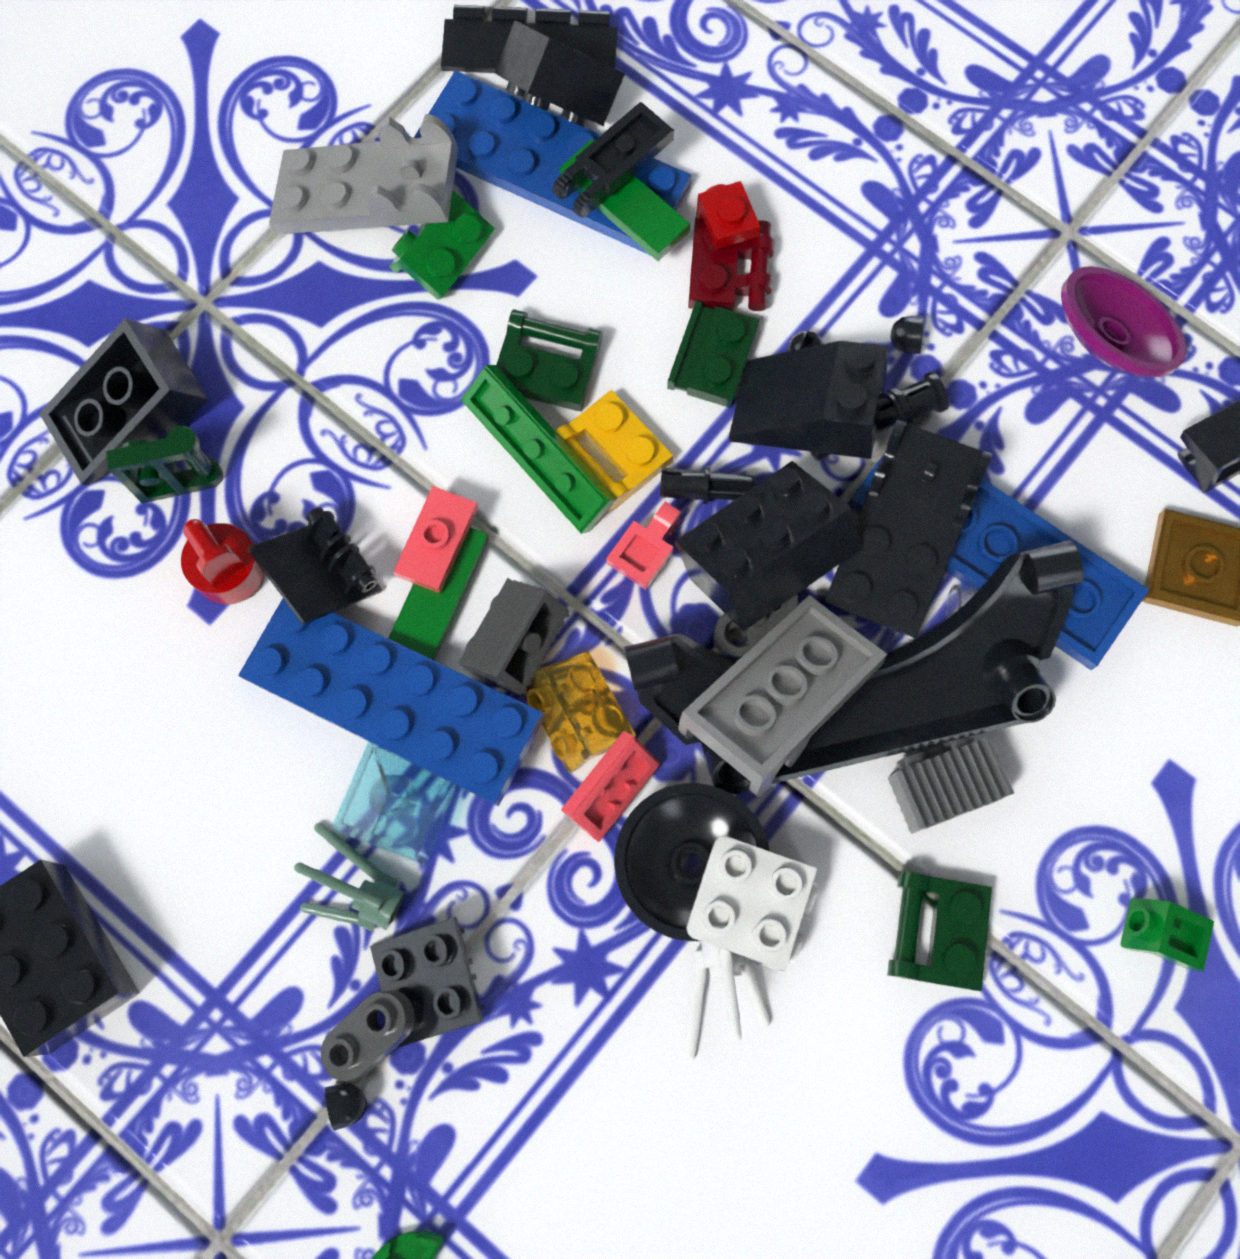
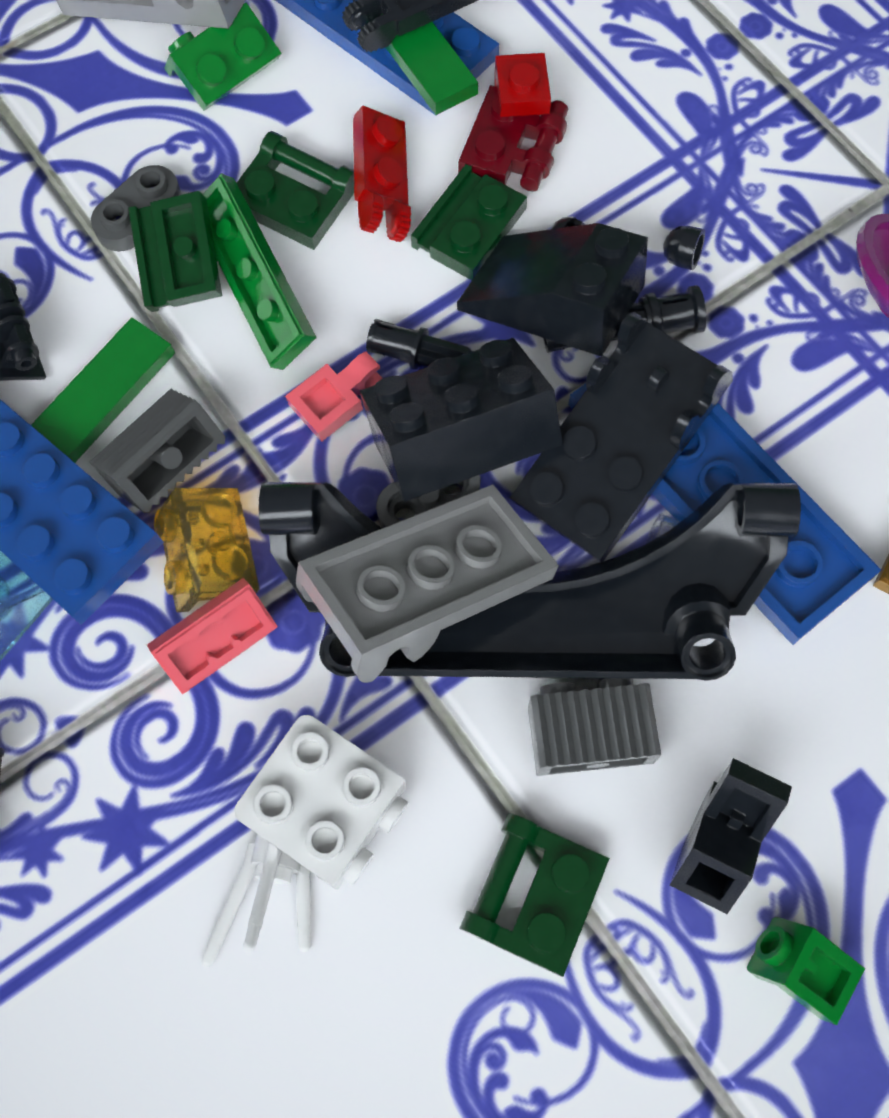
camera: 15 degrees right, 5 degrees down
(413, 408) = (133, 192): none -> dark grey plate
(436, 539) = (113, 335): coral plate -> none
(464, 446) = (175, 251): none -> dark green plate
(622, 441) = (345, 285): yellow plate -> none
(624, 328) = (381, 172): none -> red hinge
(660, 834) = (244, 707): black dish -> none
(1080, 844) = (728, 835): none -> black brick

